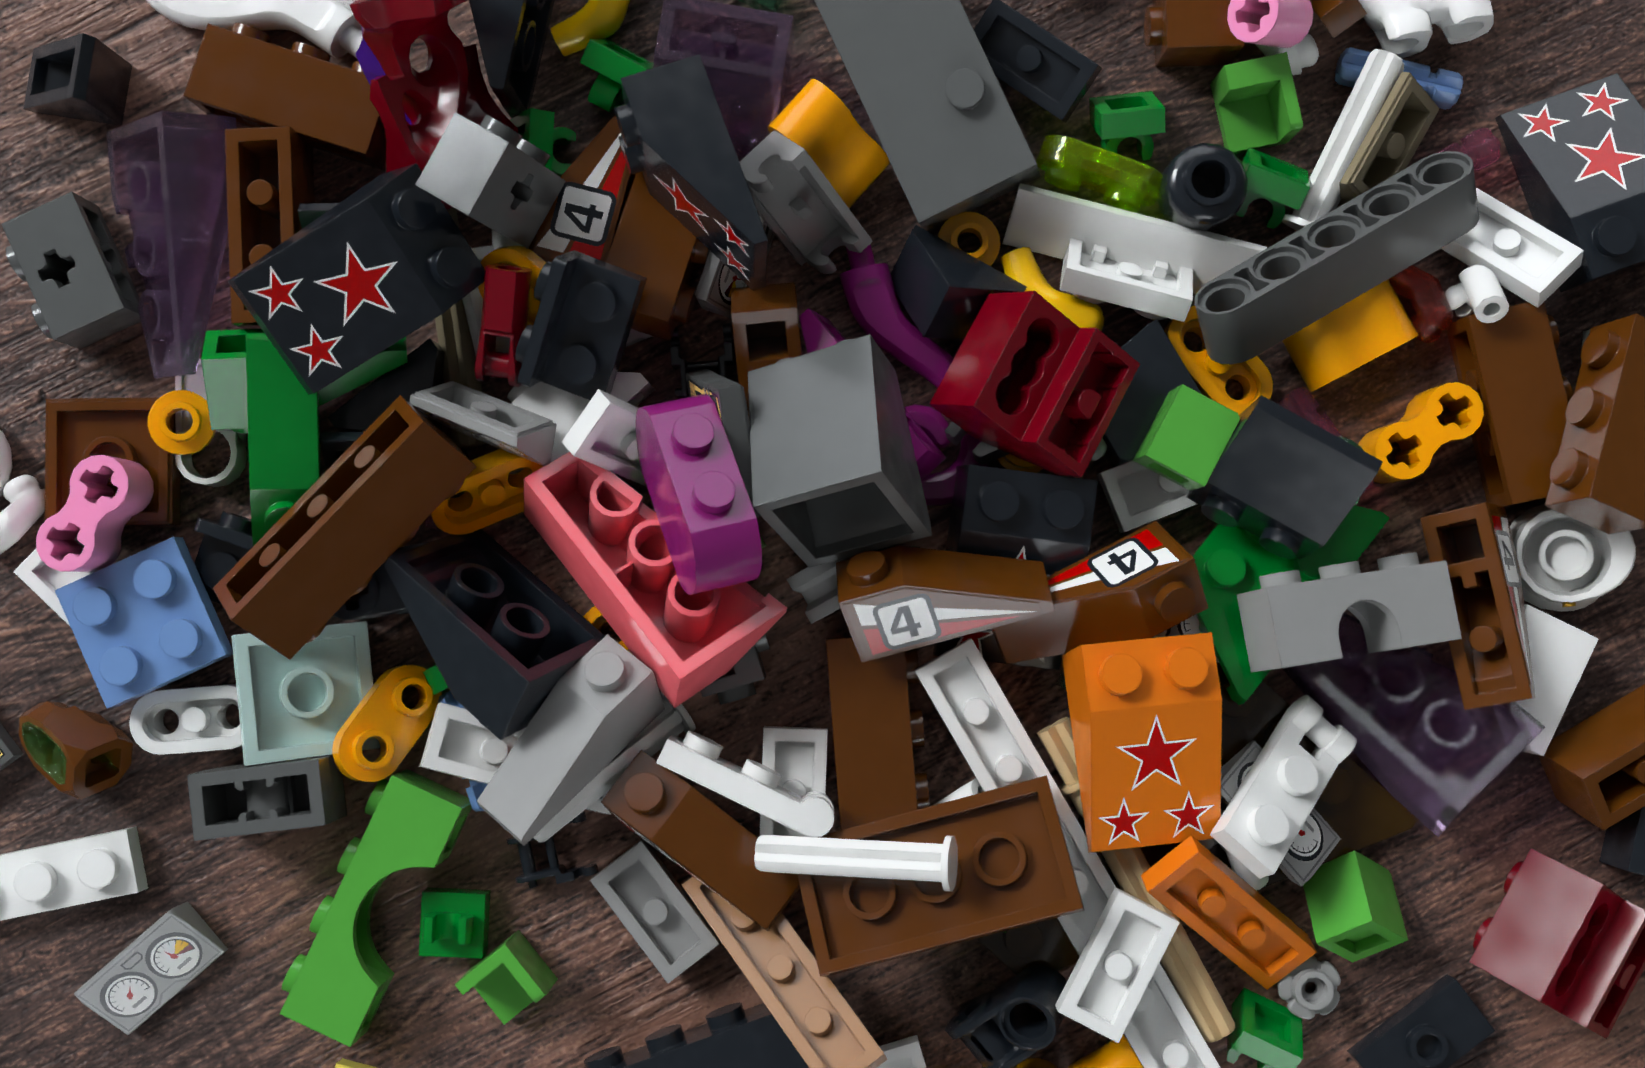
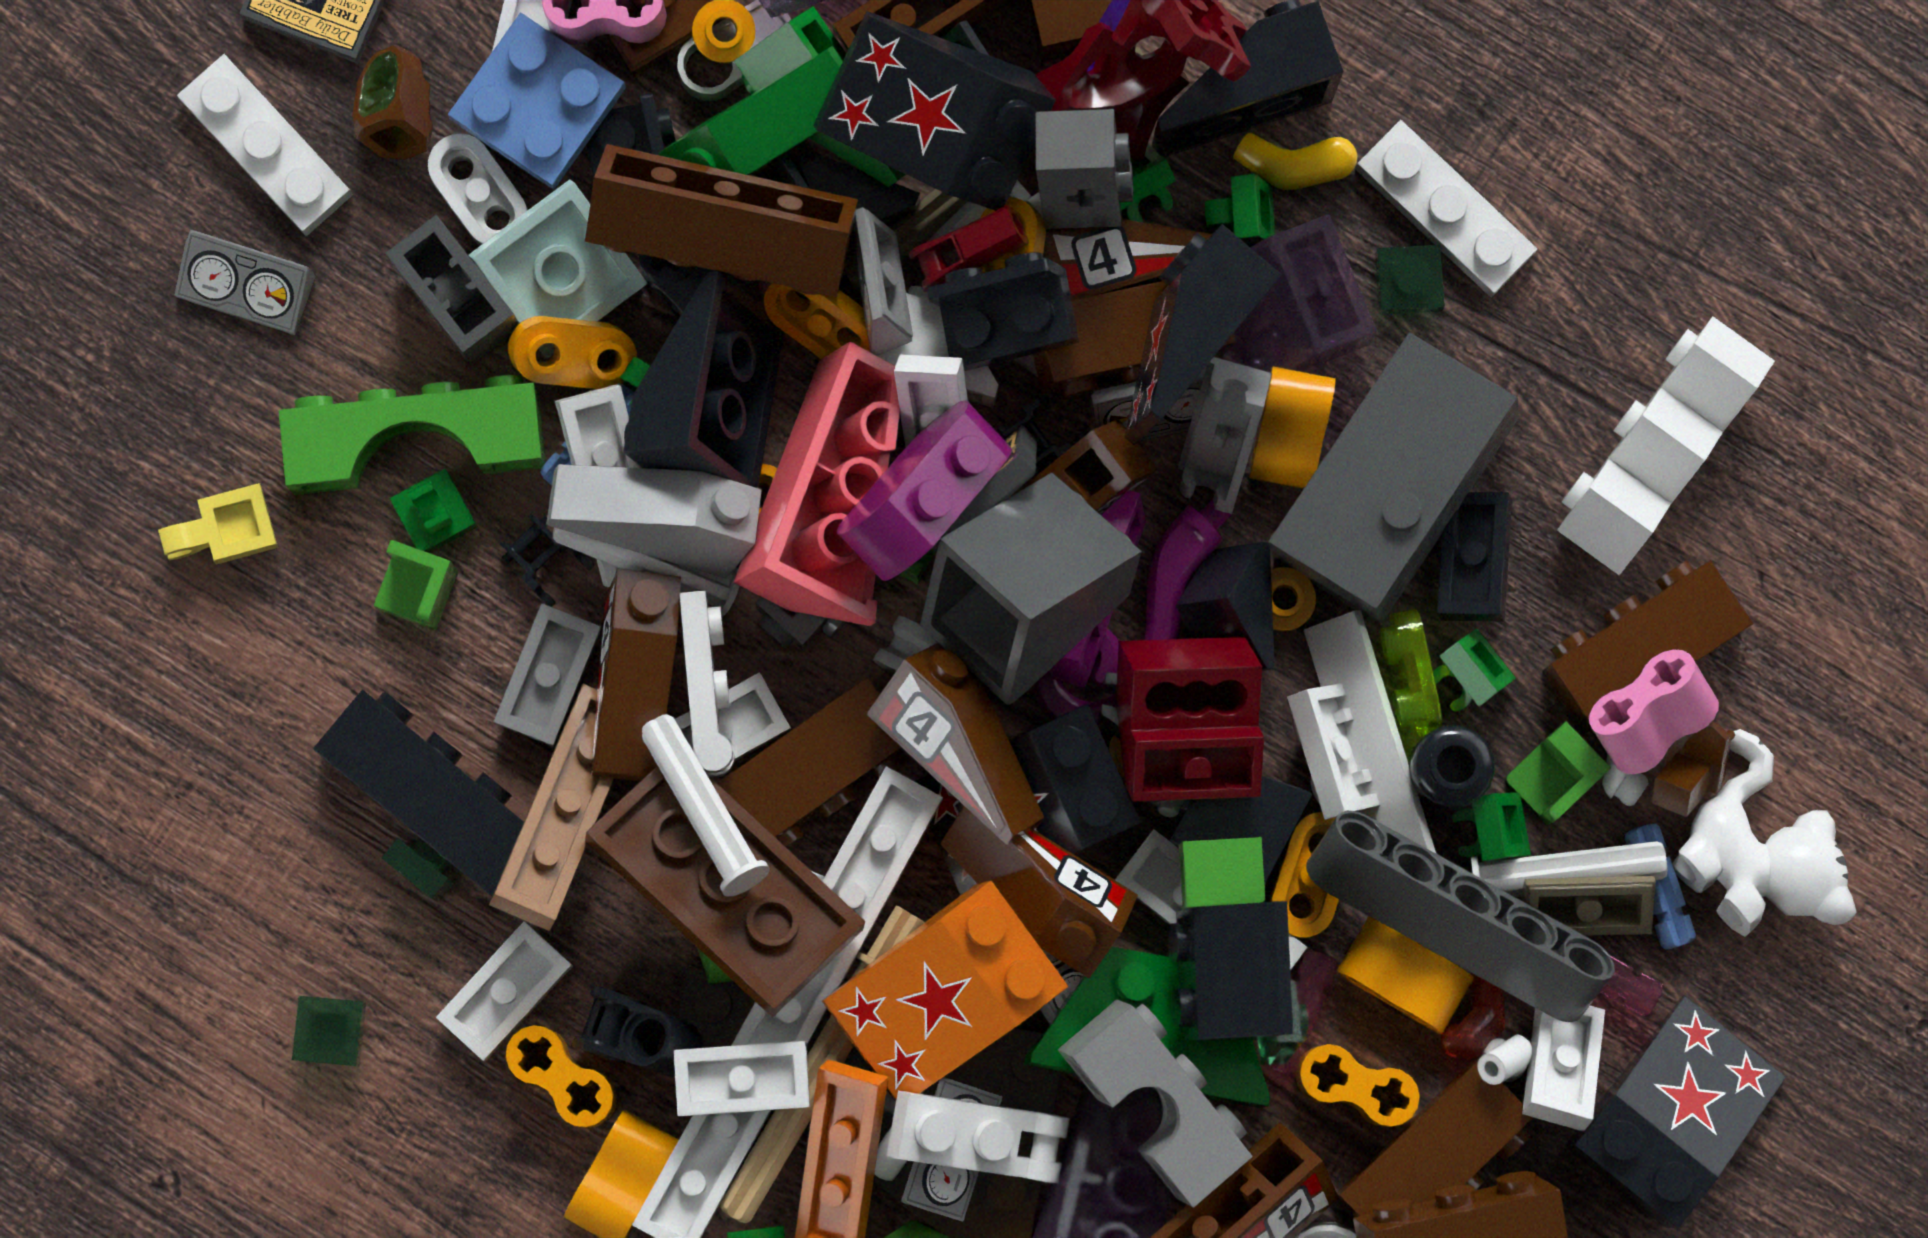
camera: 50 degrees right, 5 degrees down
(1022, 267) = (1276, 685): yellow arm -> none

